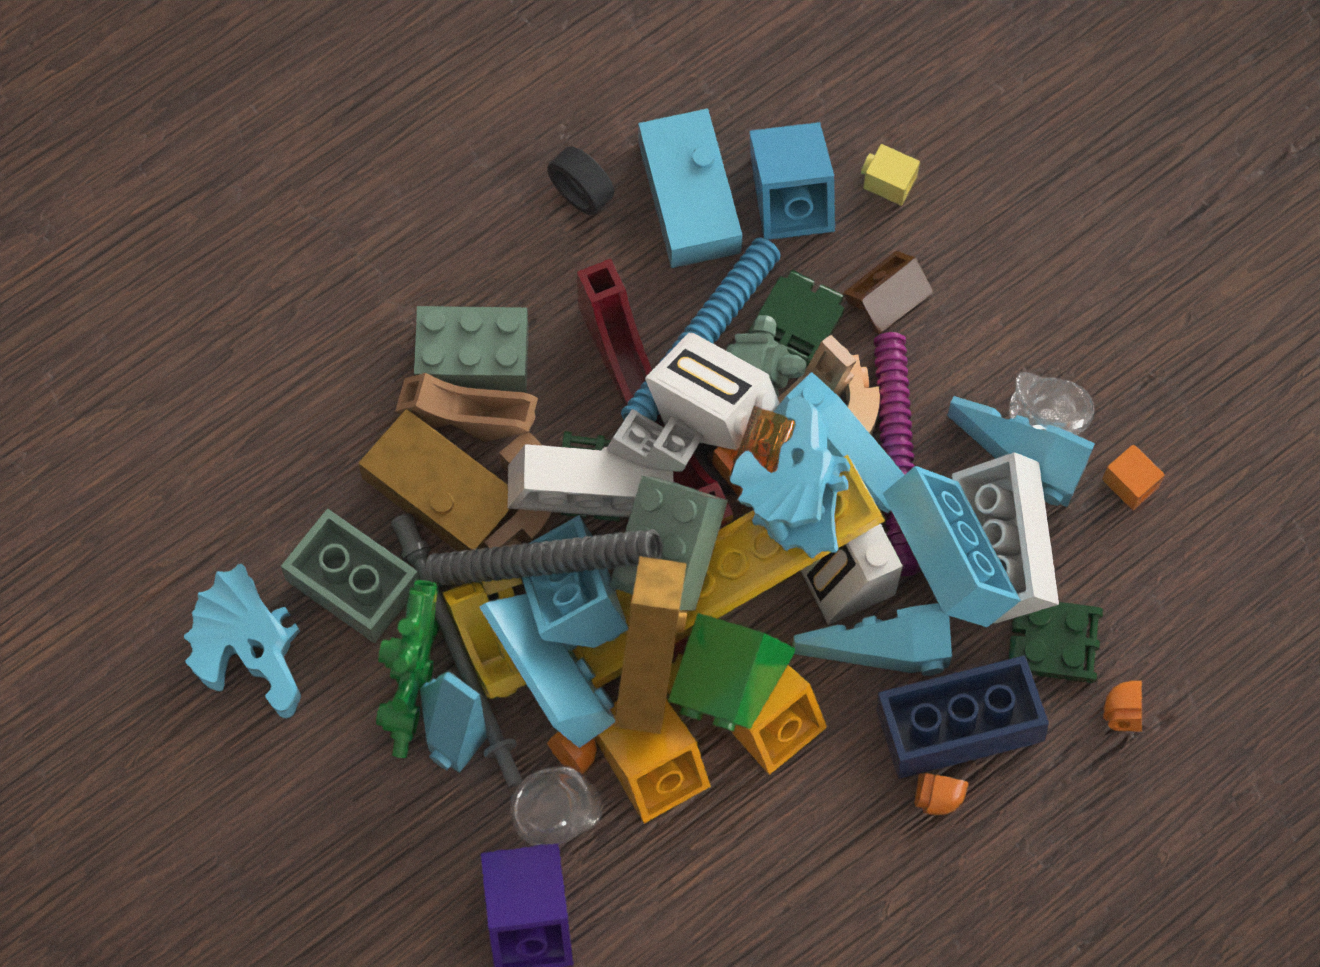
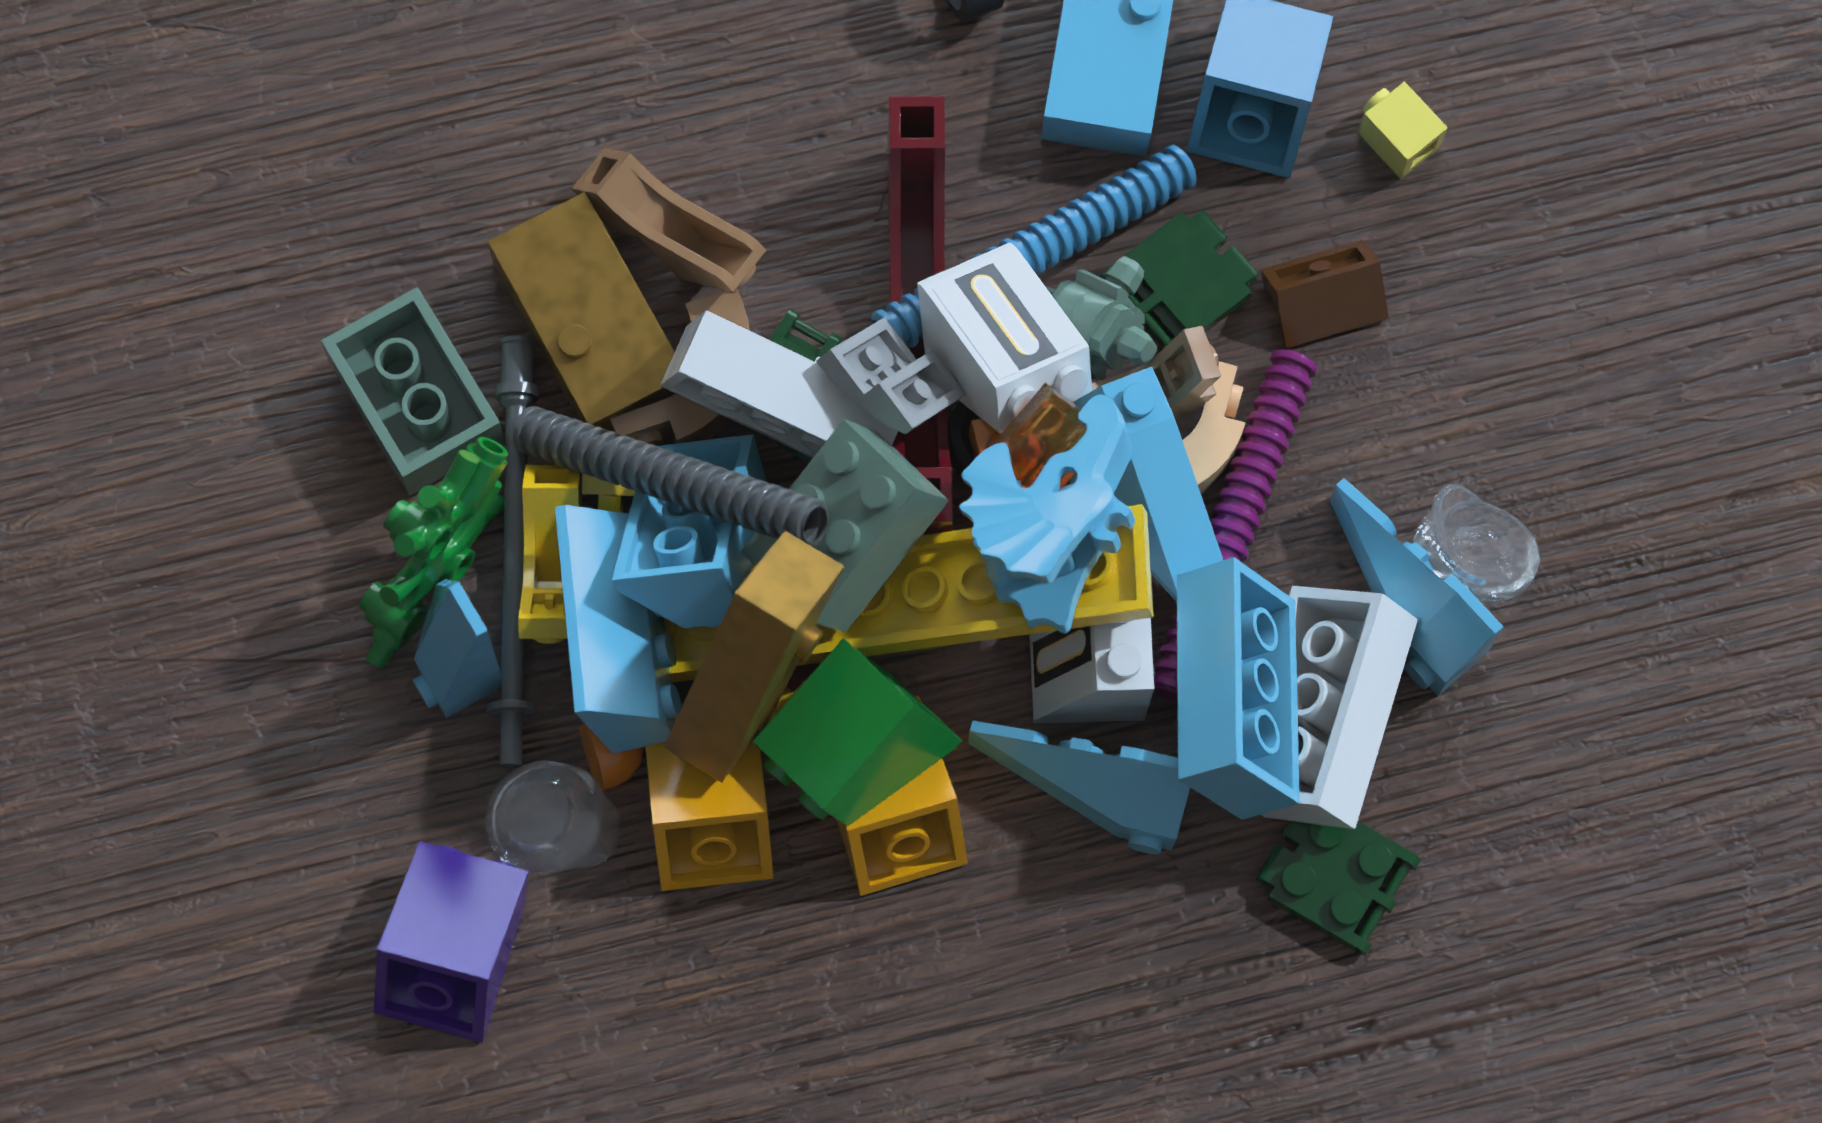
camera: 20 degrees right, 5 degrees up
(234, 621) = (232, 389): medium azure animal -> none
(473, 346) = (716, 142): sand green brick -> none
(939, 793) = (1076, 1021): orange piece -> none
(962, 716) = (1154, 928): dark blue brick -> none
(1124, 707) = (1388, 1007): orange piece -> none
(1133, 476) = (1546, 693): orange panel -> none

